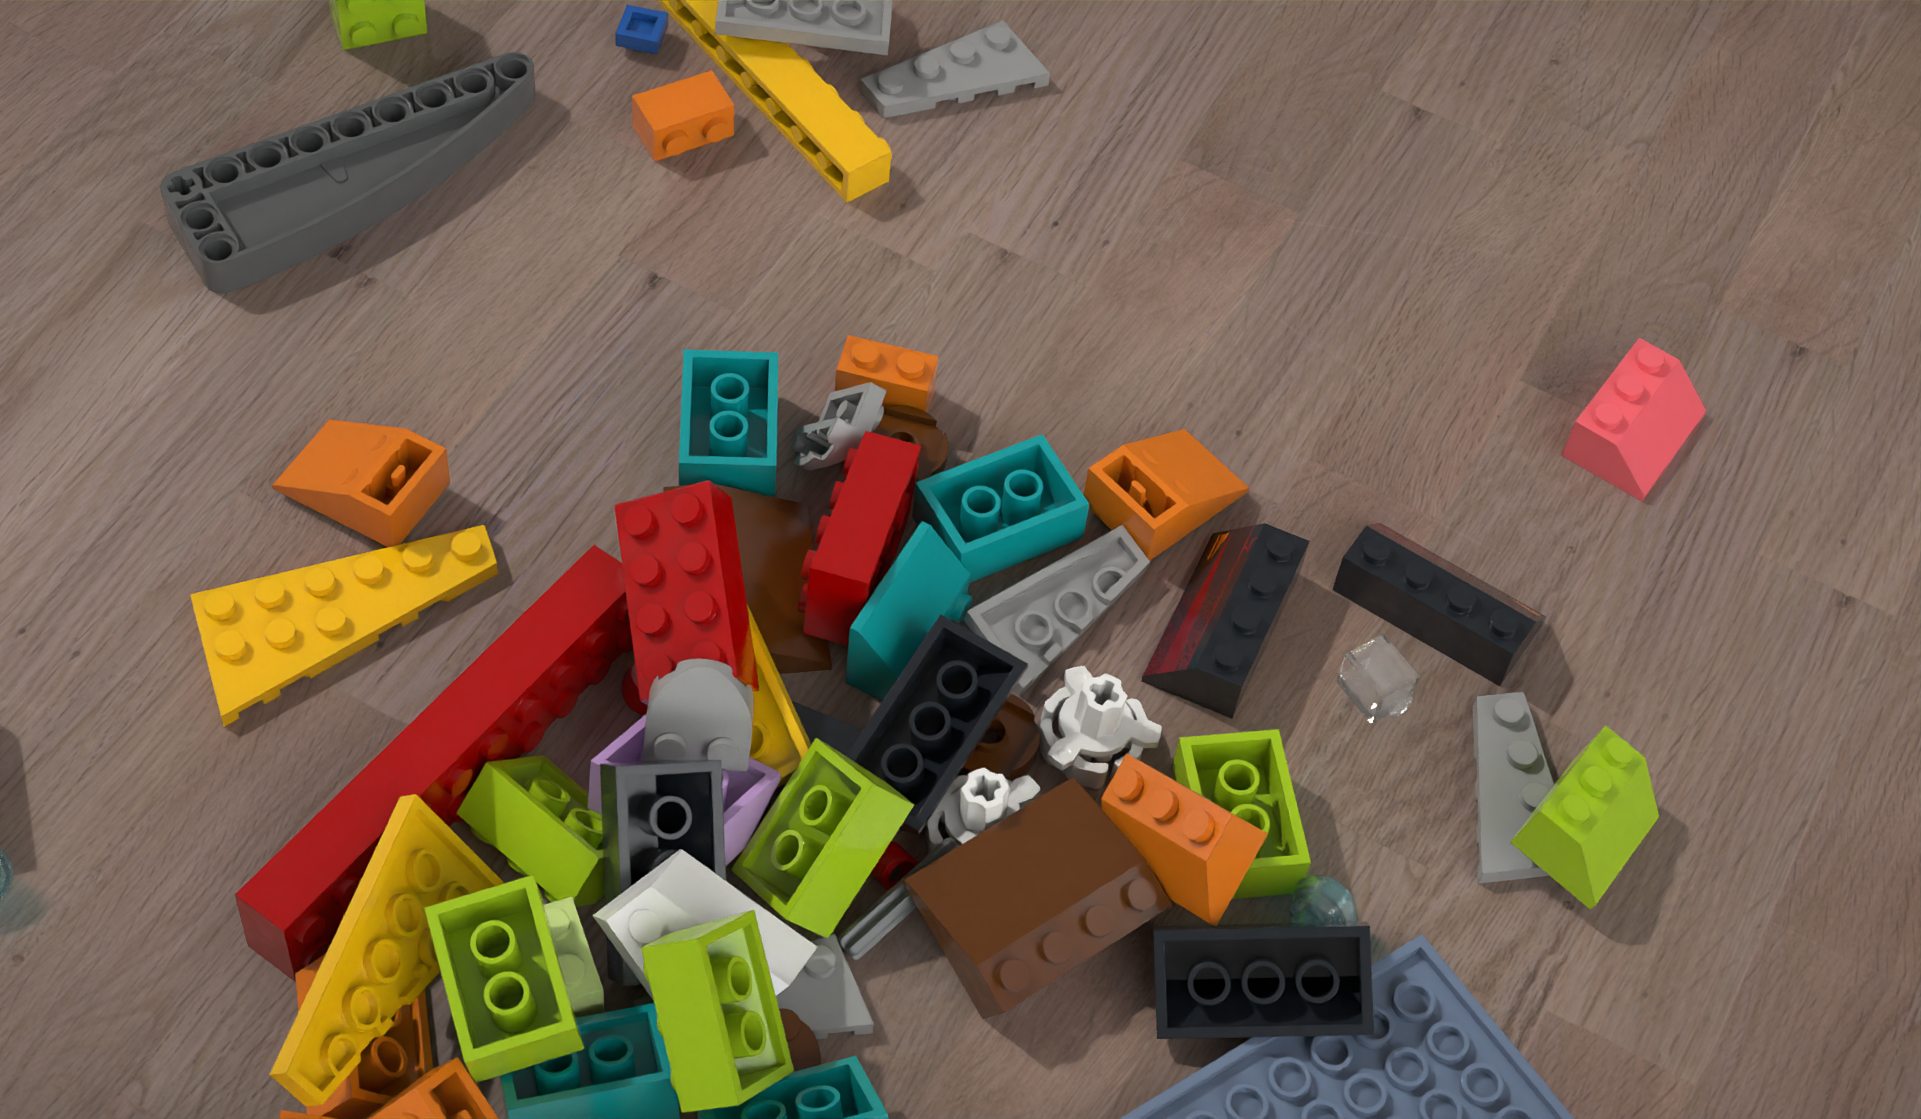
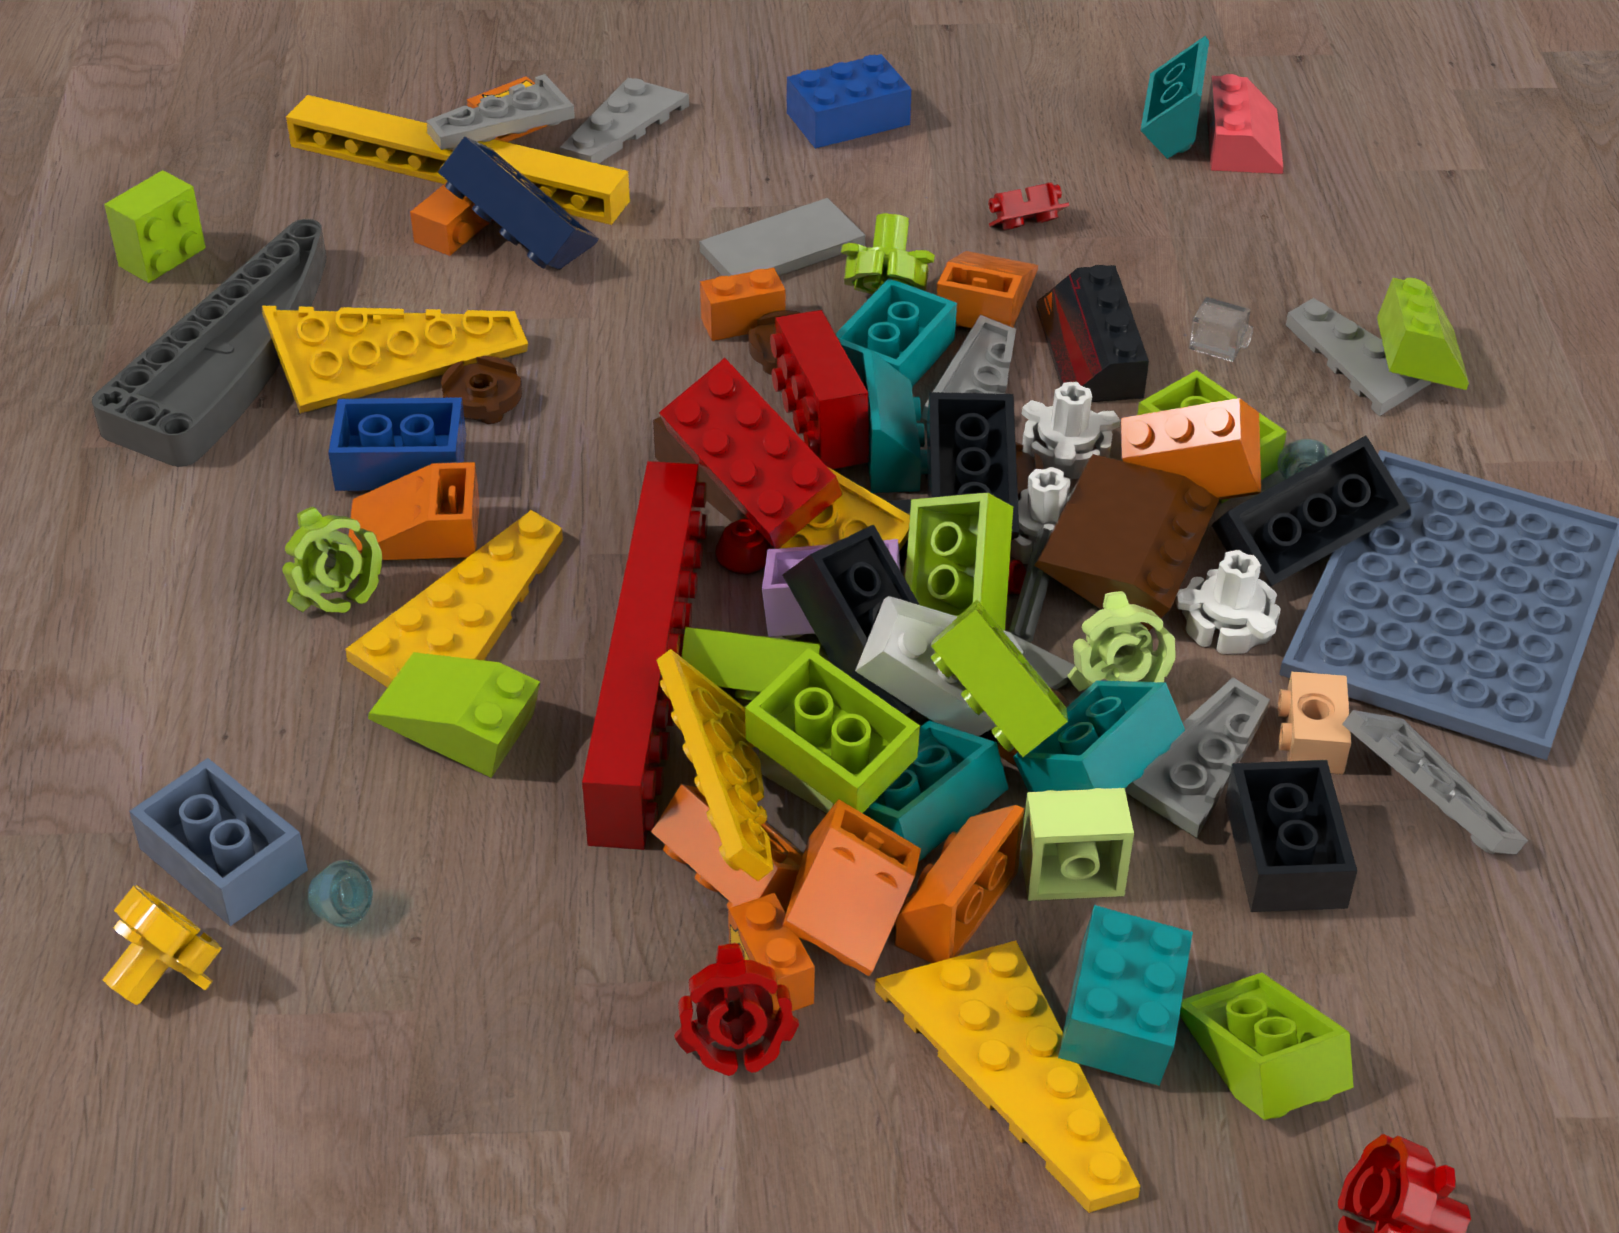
camera: 25 degrees left, 10 degrees down
(230, 726) = (459, 707): none -> lime slope
(235, 489) = (329, 562): none -> lime piece
(408, 377) = (393, 437): none -> blue brick
(469, 248) = (381, 348): none -> yellow wing
(555, 370) = (483, 403): none -> reddish brown plate
(642, 29) = (373, 179): blue plate -> none
(700, 715) = (821, 512): light grey slope -> none
(729, 419) = (649, 362): teal brick -> none
(742, 141) = (515, 204): none -> dark blue slope
(840, 427) = (743, 331): light grey slope -> none
(919, 1031) = (1121, 646): none -> yellowish green piece
(1000, 318) = (783, 241): none -> light grey tile
(1065, 410) = (871, 266): none -> lime piece
(1091, 1036) = (1231, 602): none -> white piece
(1211, 167) = (848, 100): none -> blue brick
(1312, 411) = (1041, 203): none -> red hinge
(1436, 602) = (1221, 272): black slope -> none
(1574, 350) = (1175, 100): none -> teal slope

